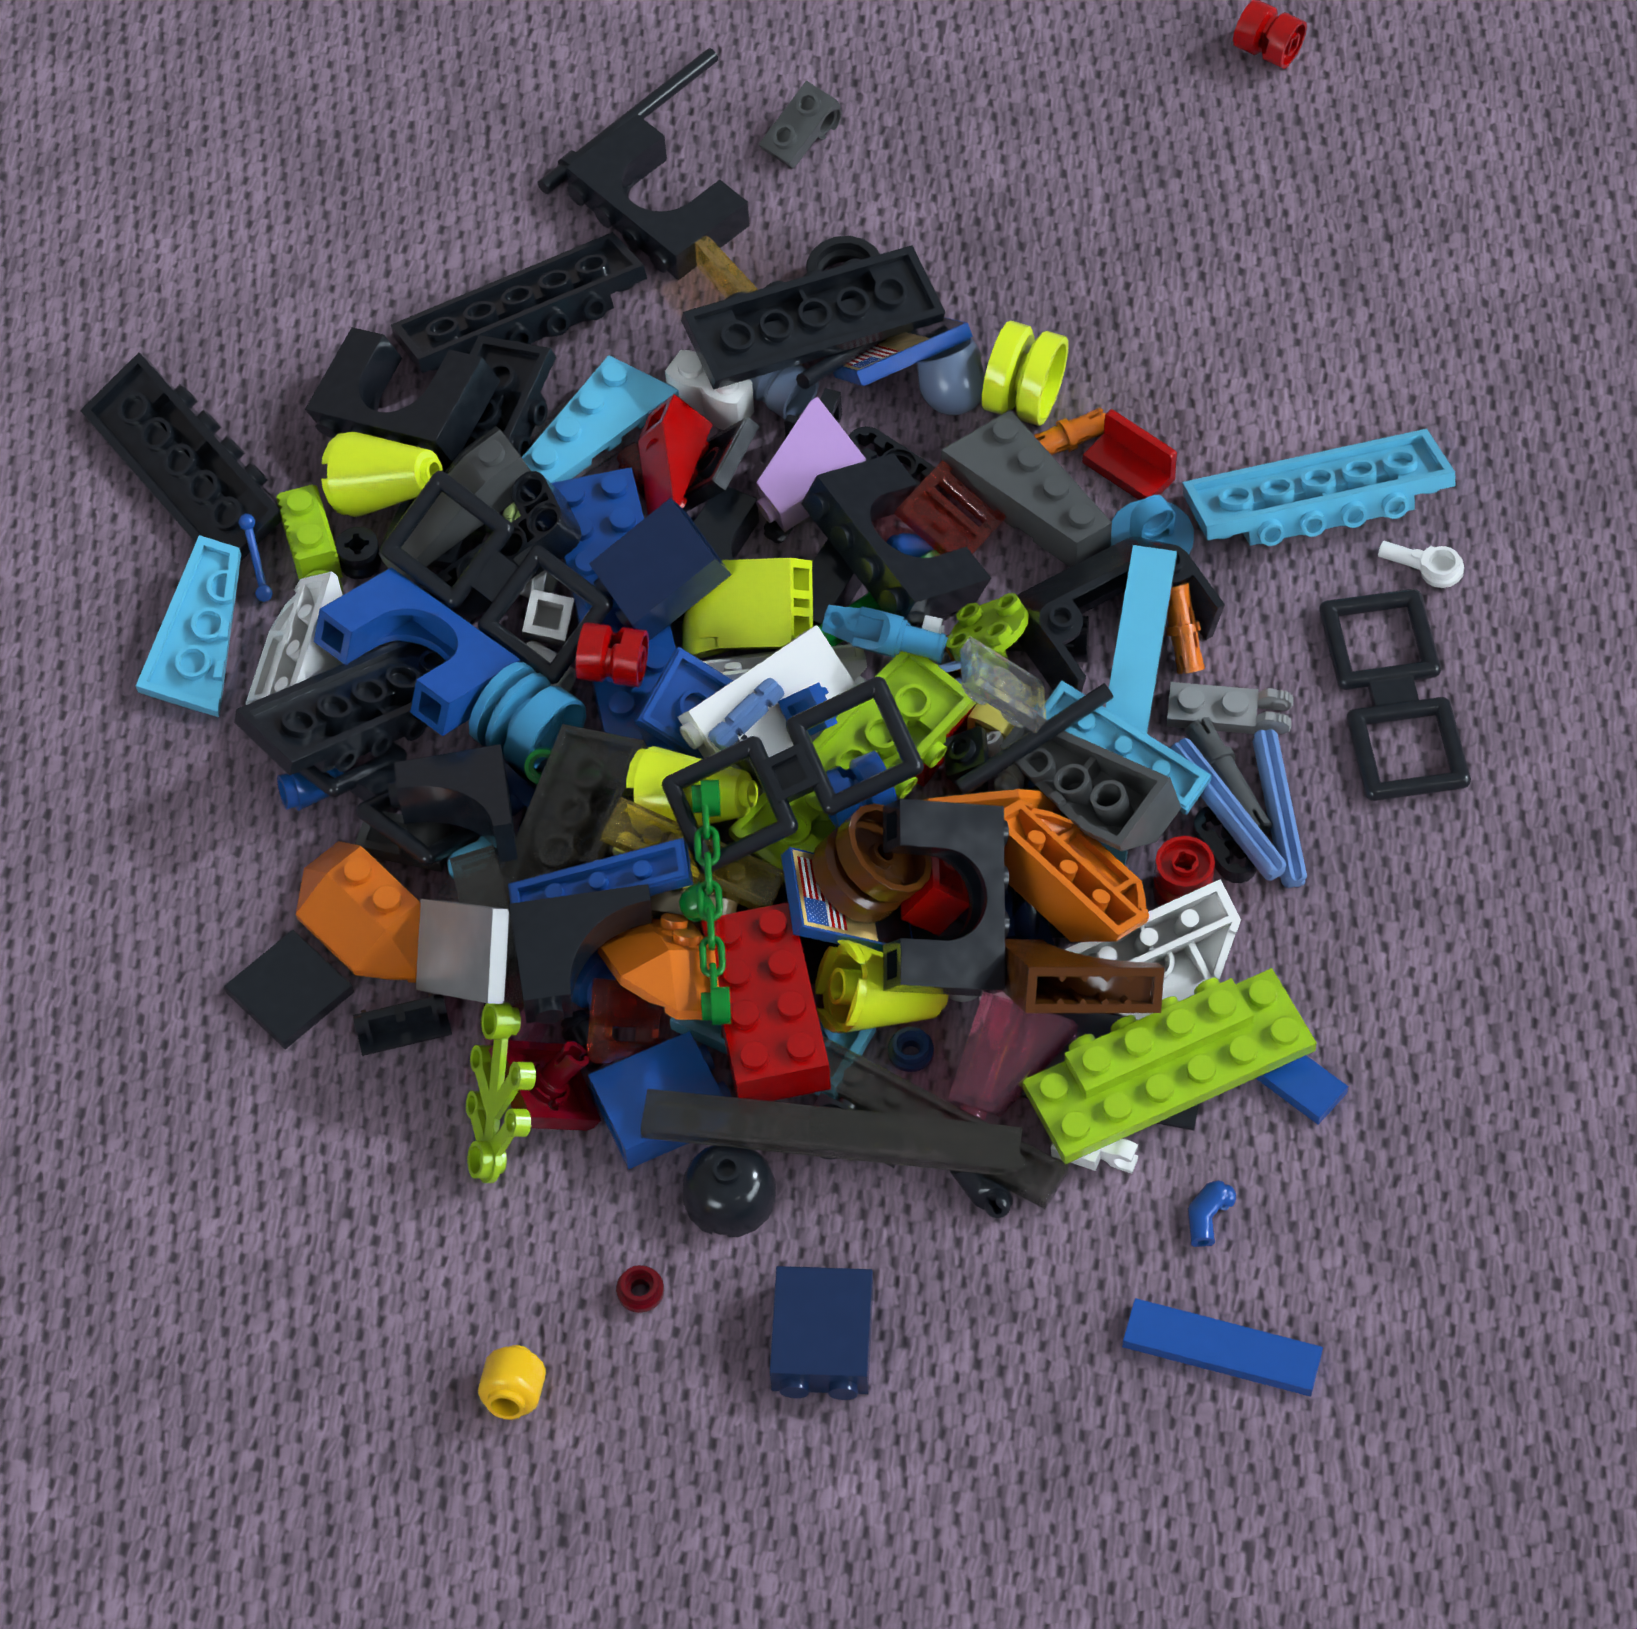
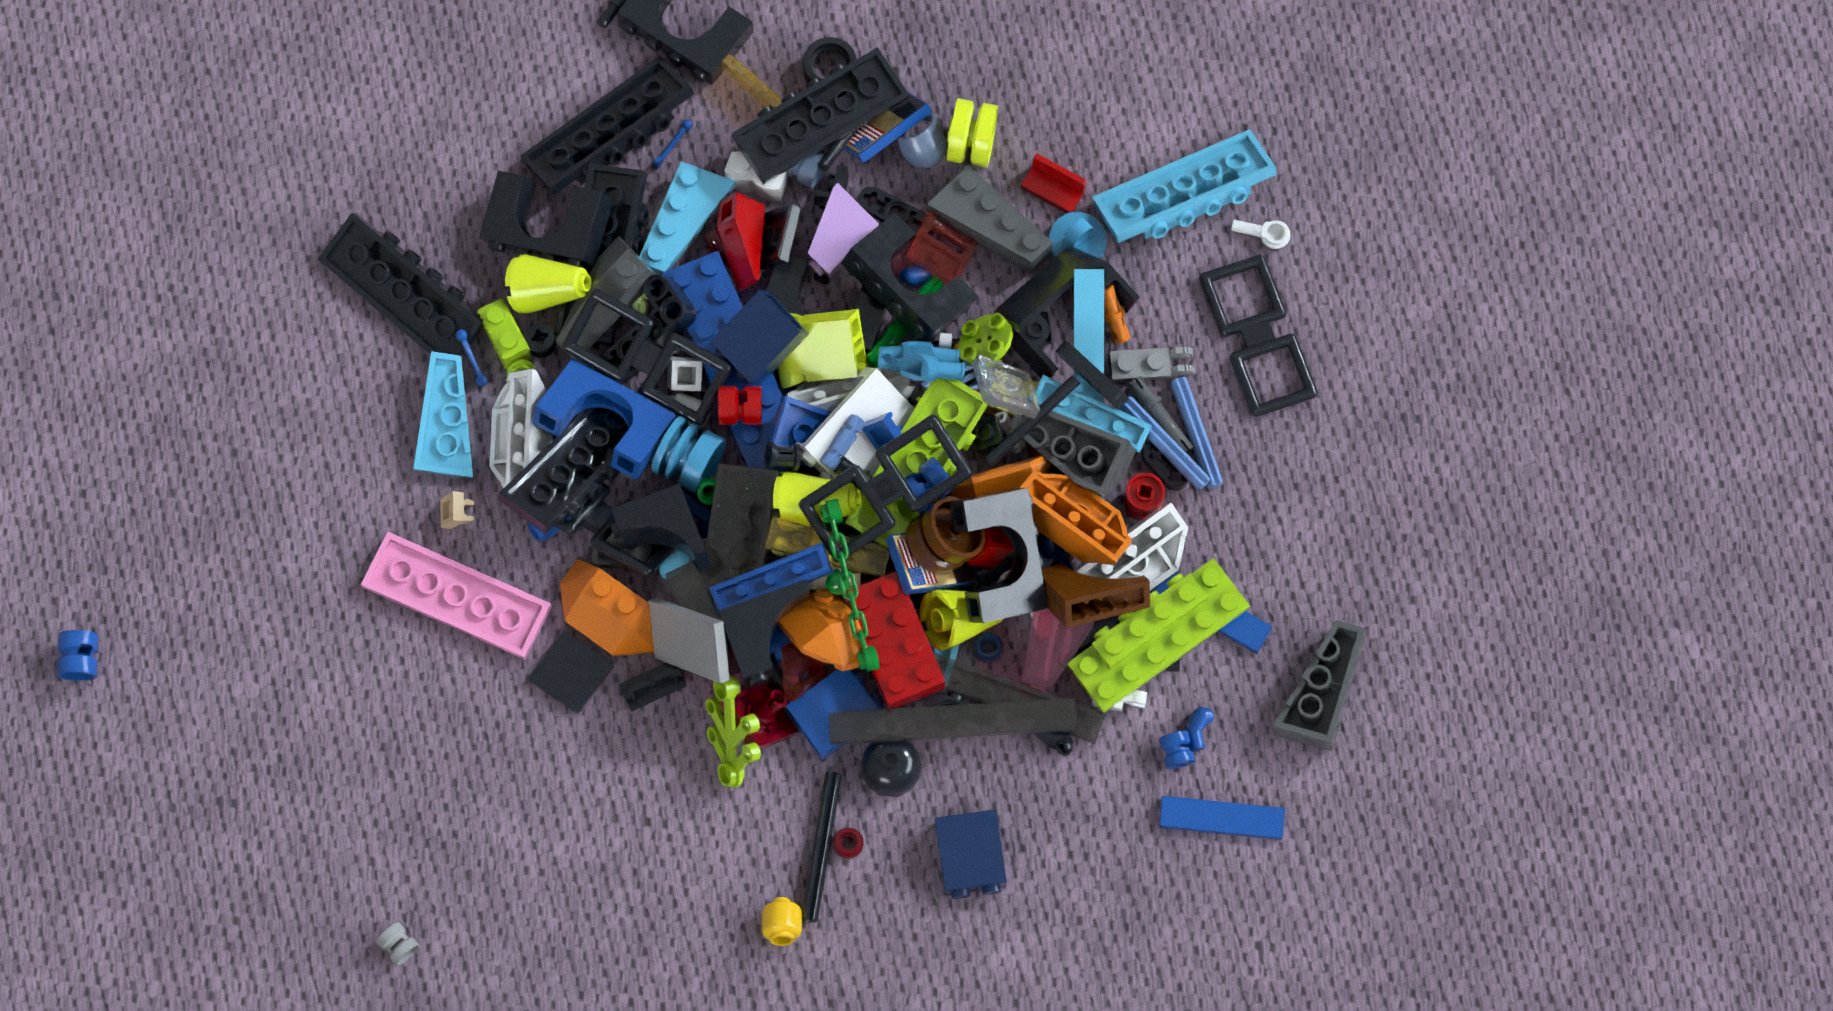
camera: 15 degrees left, 15 degrees up
(152, 861) = (456, 595): none -> bright pink plate
(177, 749) = (452, 510): none -> tan tile
(597, 1289) = (821, 847): none -> black axle
(630, 322) = (686, 126): none -> blue hinge
(655, 723) = (782, 456): none -> black bush
(1071, 433) = (1009, 169): orange pin -> none
(1133, 690) = (1092, 375): none -> black beam
(1169, 1235) = (1177, 750): none -> blue wheel
(1410, 1183) = (1323, 691): none -> dark grey wedge

